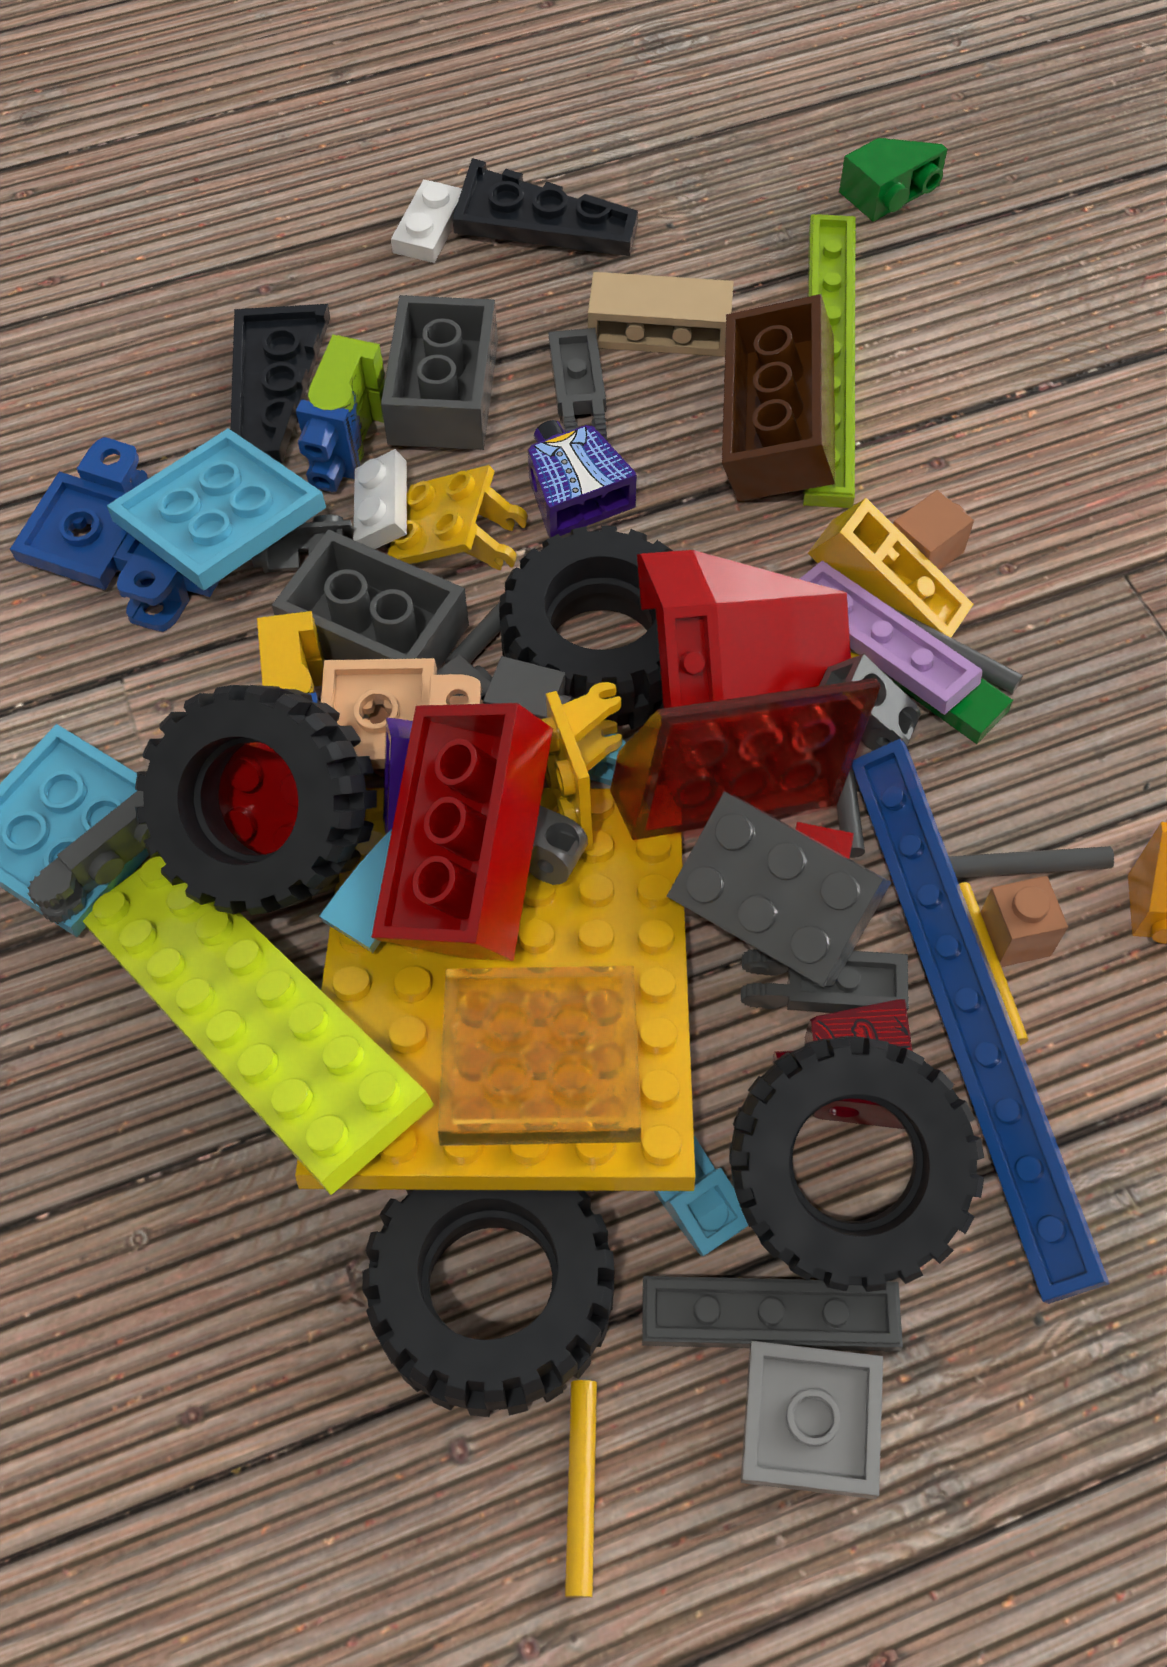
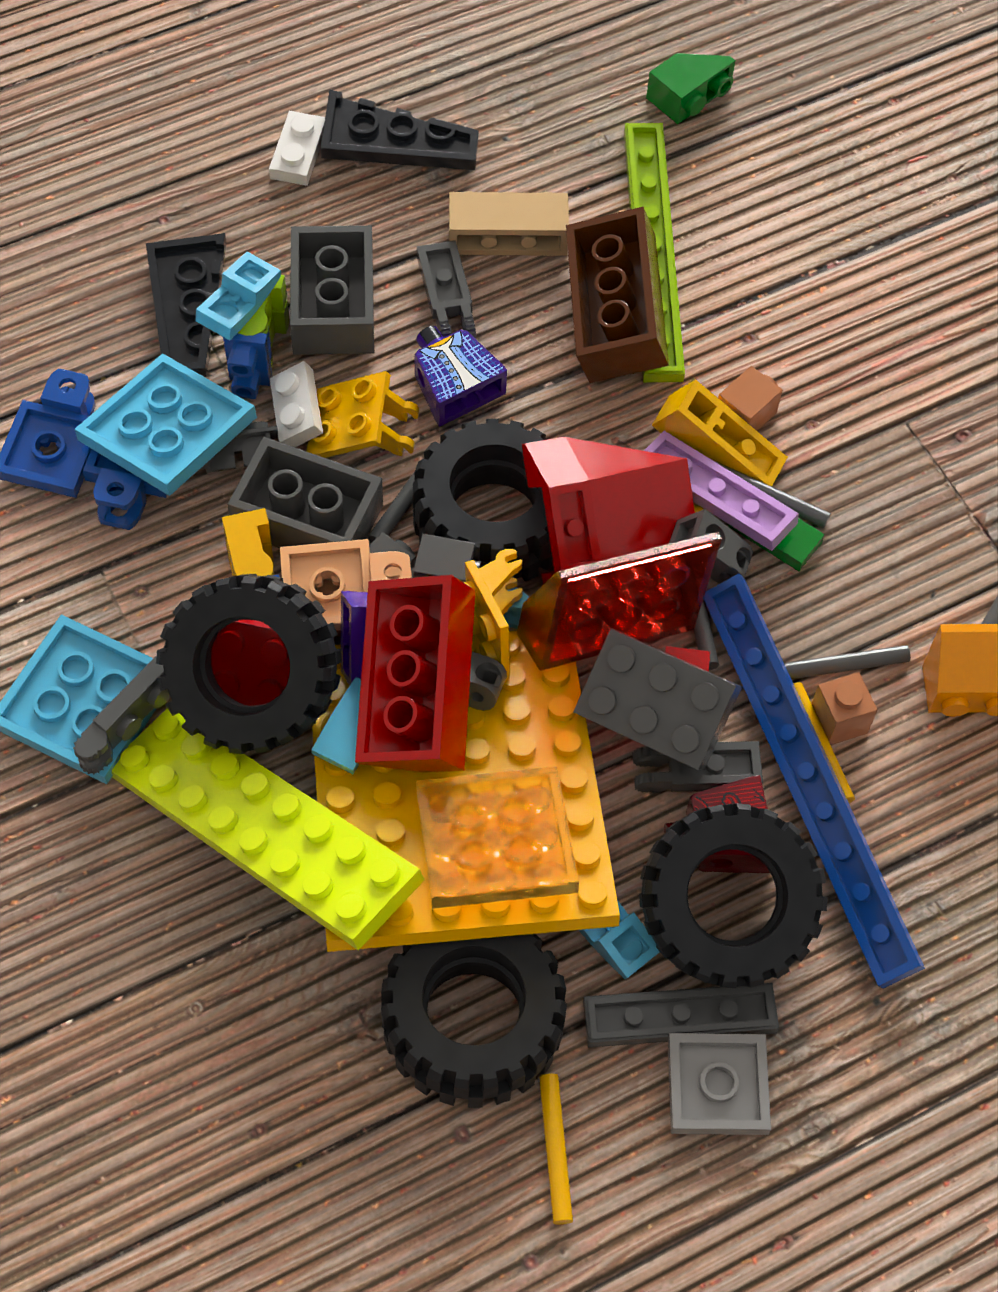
camera: 10 degrees left, 0 degrees up
(325, 359) = (241, 294): none -> medium azure slope

